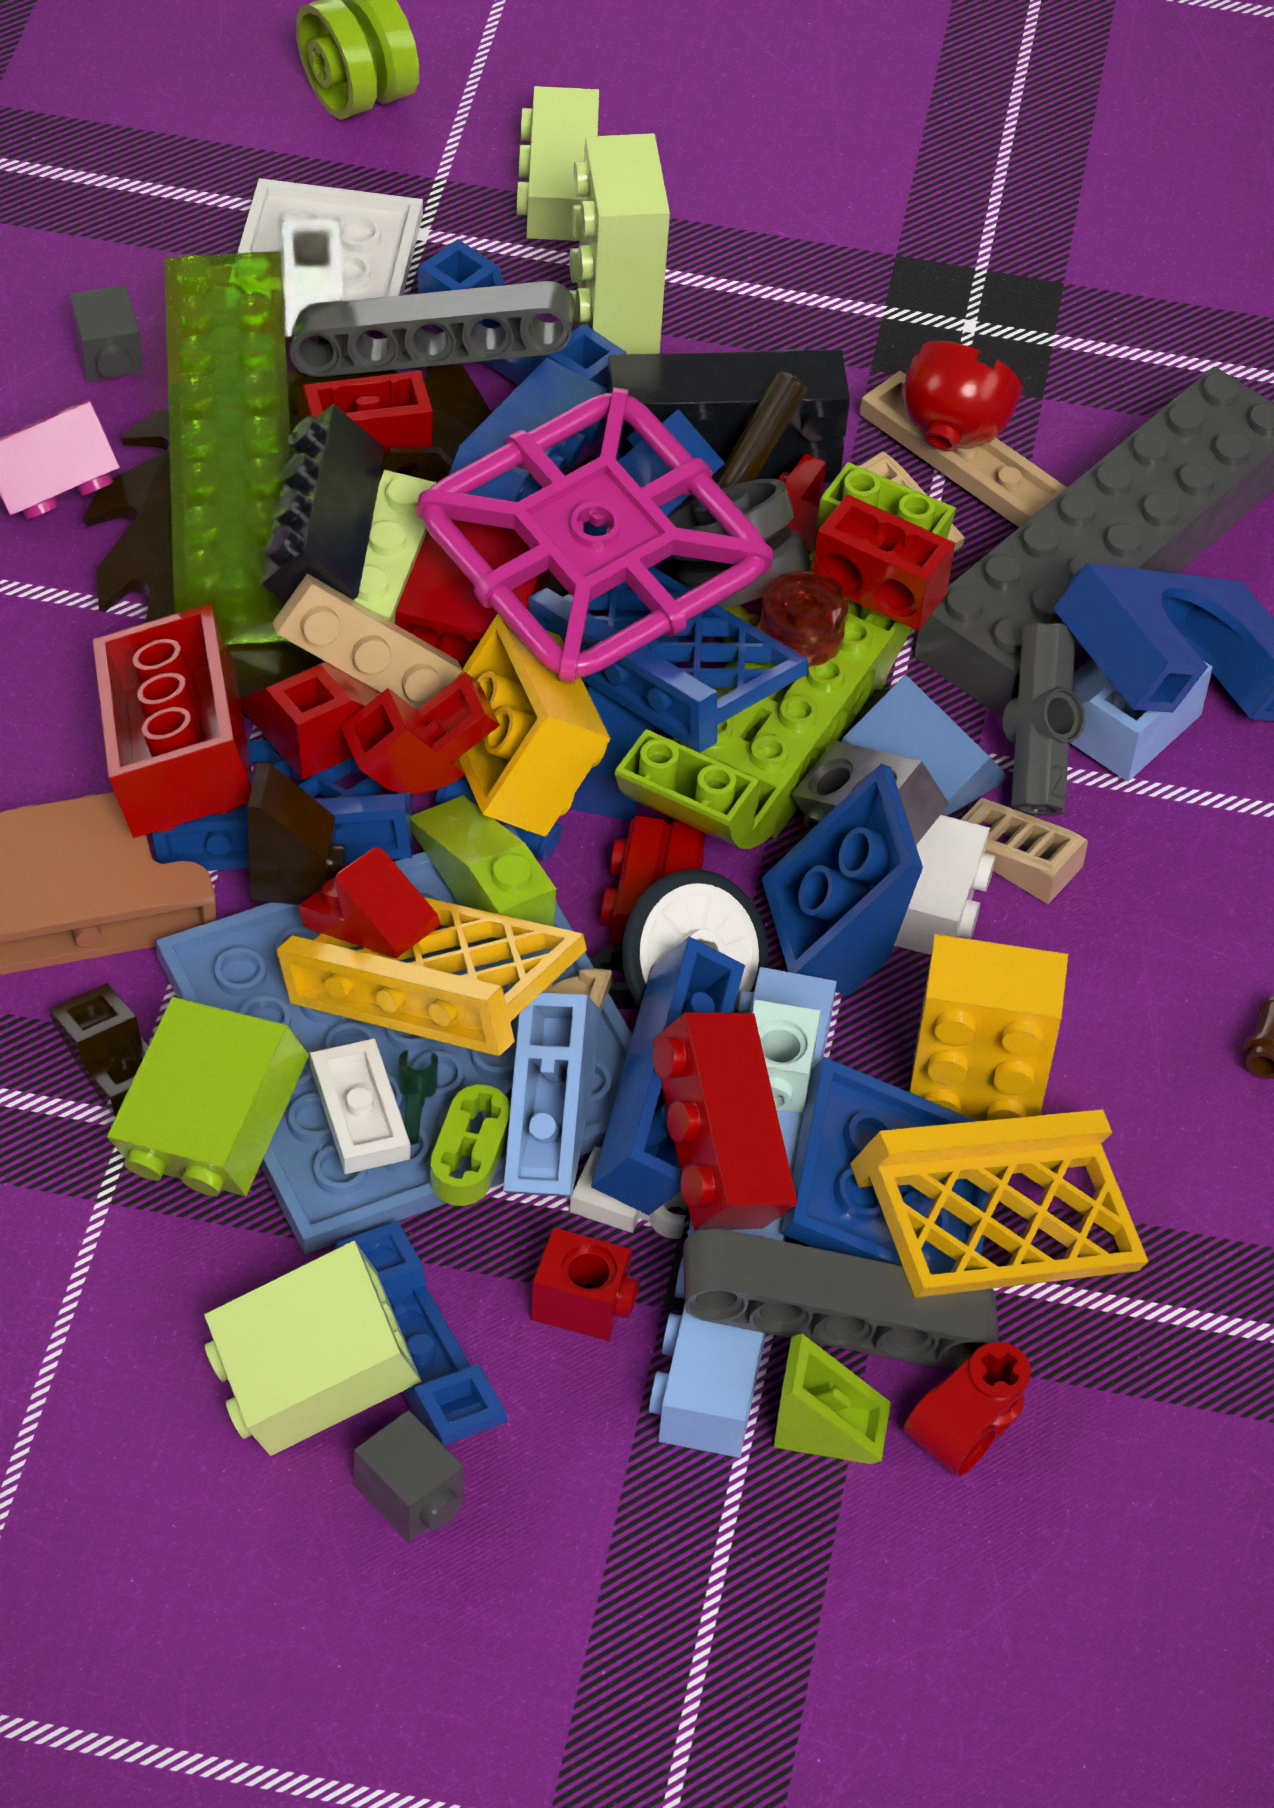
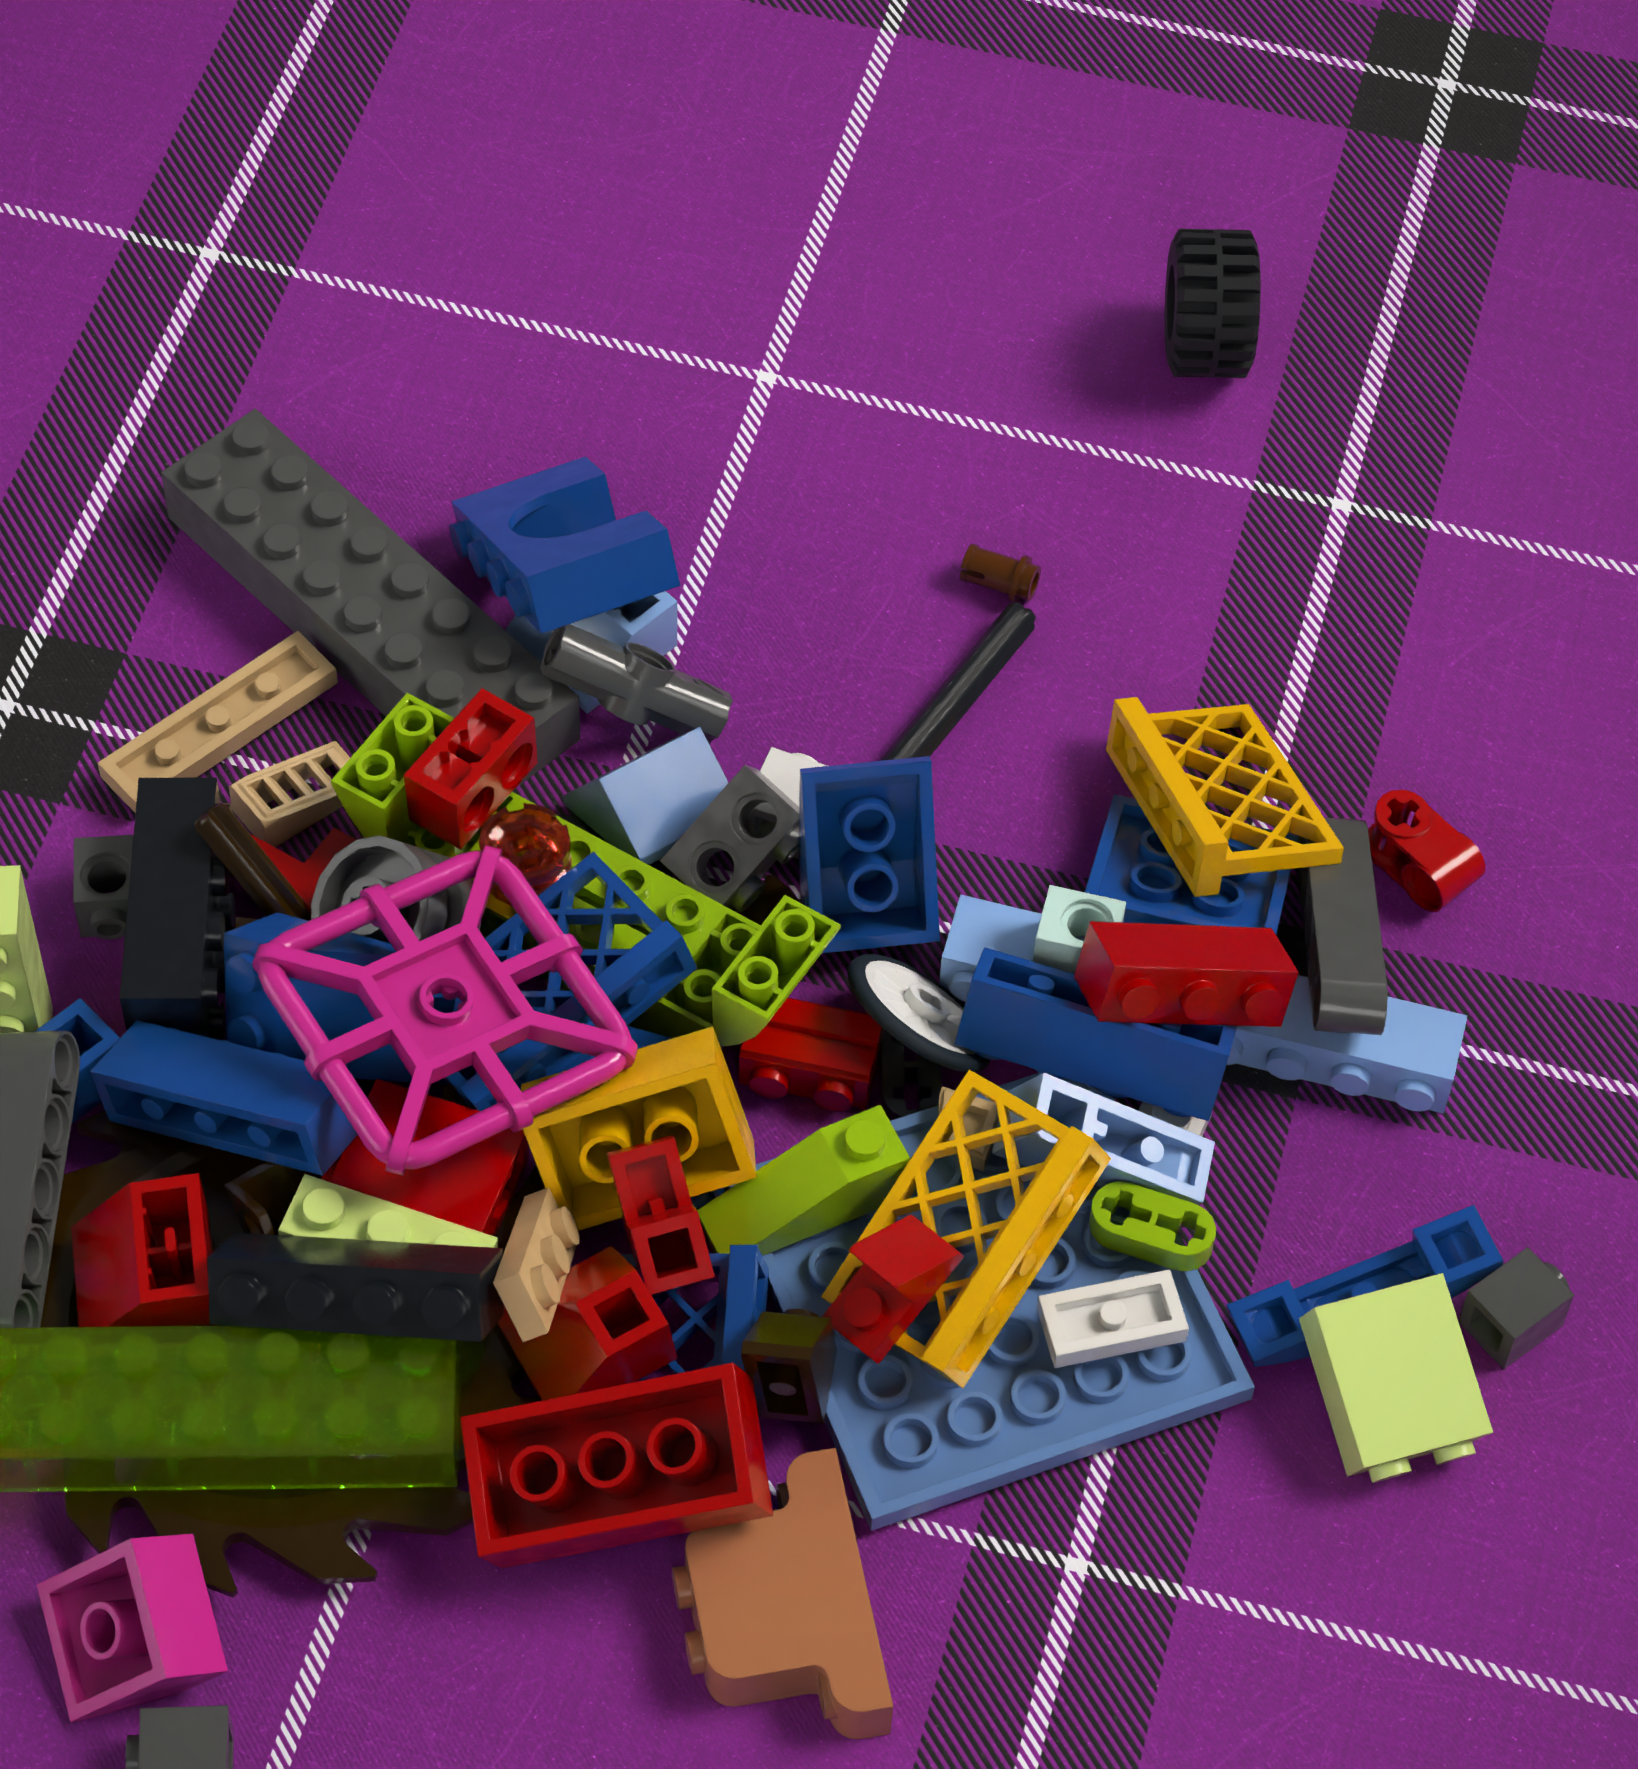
camera: 85 degrees left, 5 degrees up
(103, 1041) = (998, 1577): dark brown slope -> none
(208, 1097) = (1103, 1459): lime brick -> none
(416, 1087) = (1082, 1273): clear green hand -> none
(579, 1260) = (1291, 1172): red brick -> none
(829, 1408) = (1425, 966): lime slope -> none
(958, 398) = (193, 698): red cylinder -> none
(988, 1027) = (1058, 767): yellow brick -> none
(1035, 875) = (782, 710): tan slope -> none
(1144, 1021) = (964, 684): none -> black axle

